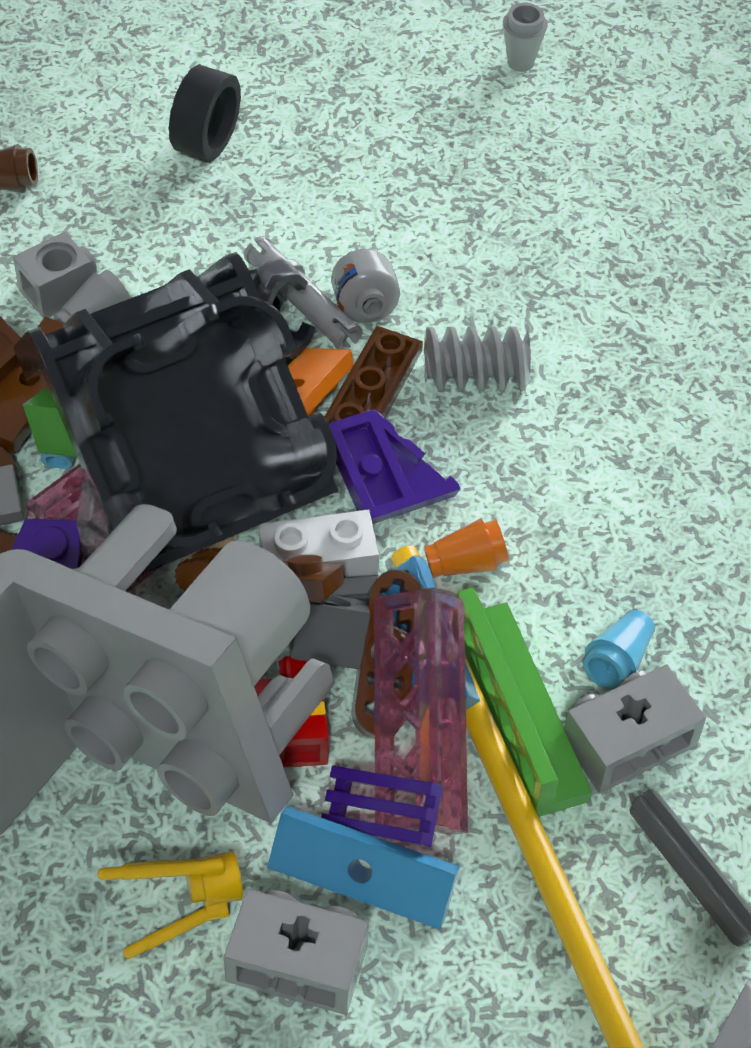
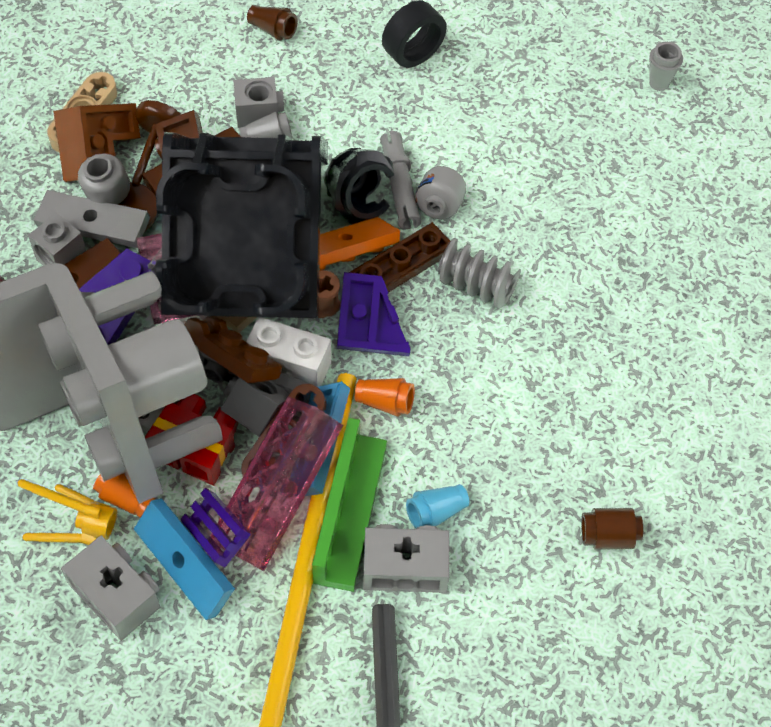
camera: 30 degrees right, 5 degrees up
(227, 831) = (120, 494): none -> orange cone

